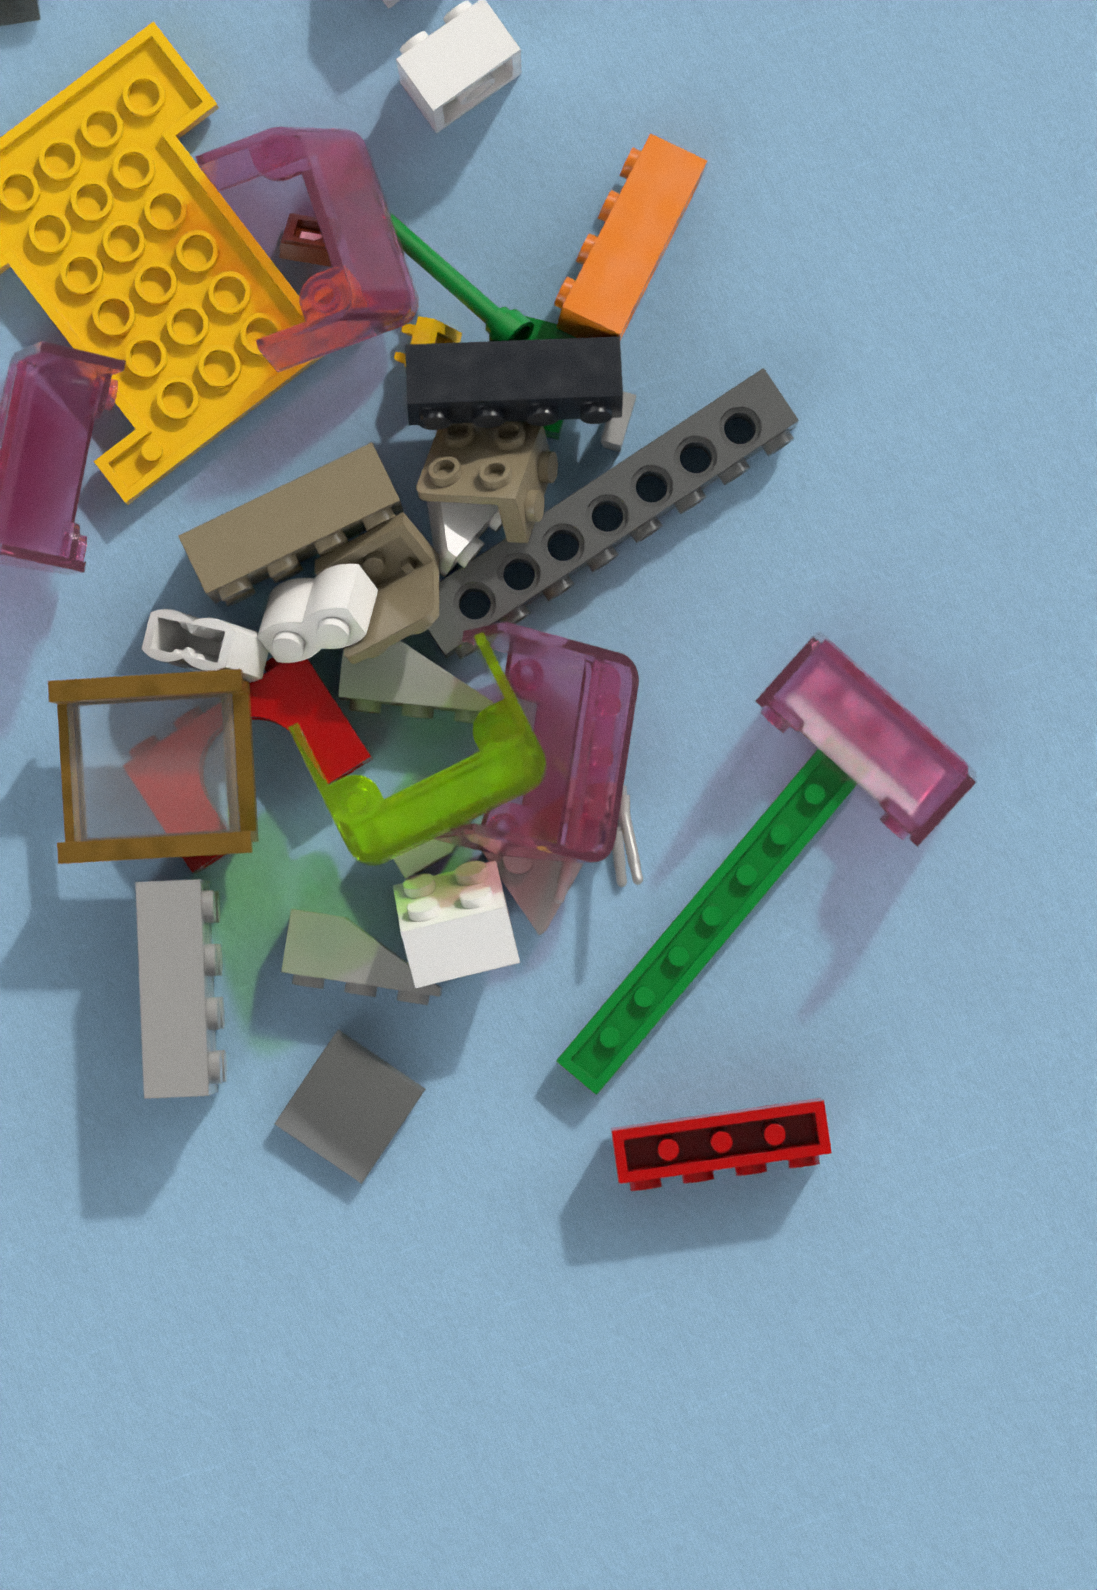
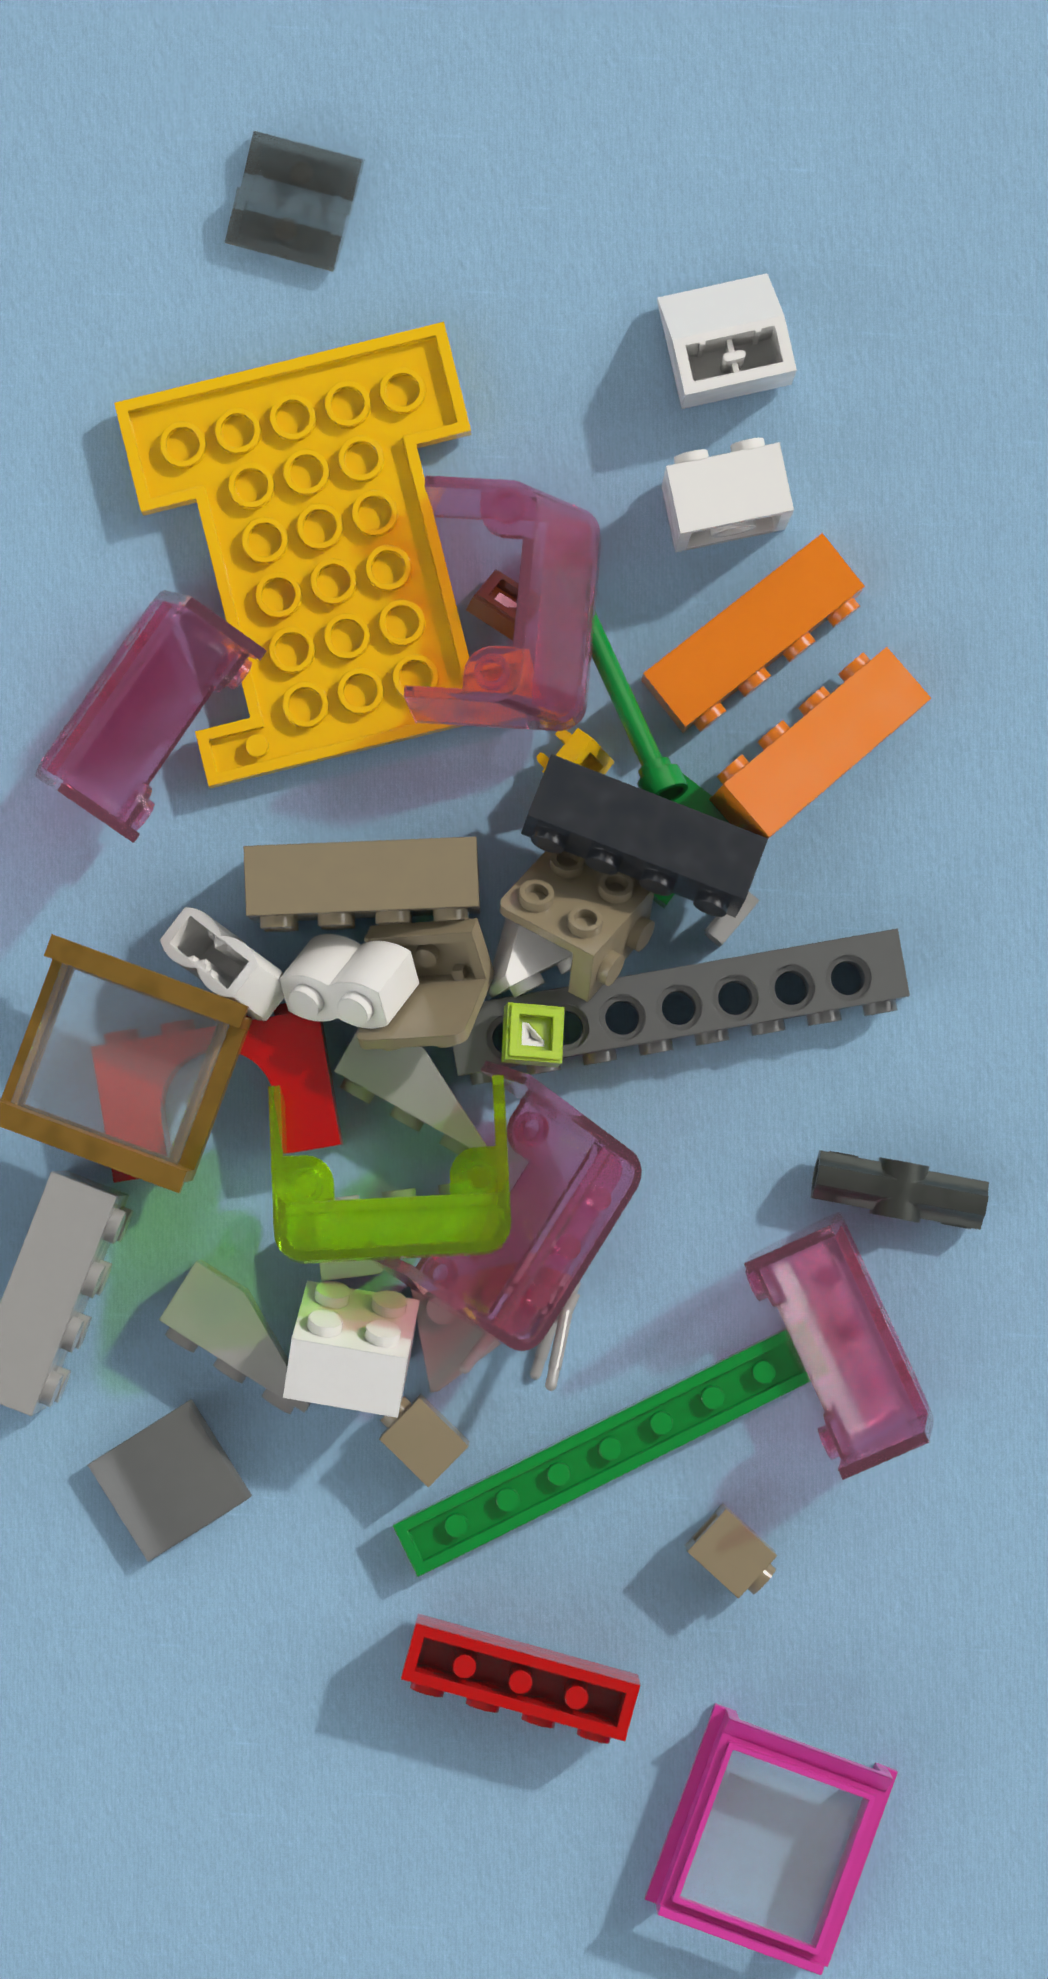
camera: 20 degrees right, 0 degrees up
(493, 591) = (532, 1034): none -> lime tile
(532, 173) = (752, 634): none -> orange brick
(549, 976) = (423, 1439): none -> dark tan brick
(855, 958) = (732, 1552): none -> dark tan brick
(862, 590) = (899, 1189): none -> pearl dark grey piece
(991, 1187) = (769, 1841): none -> piece

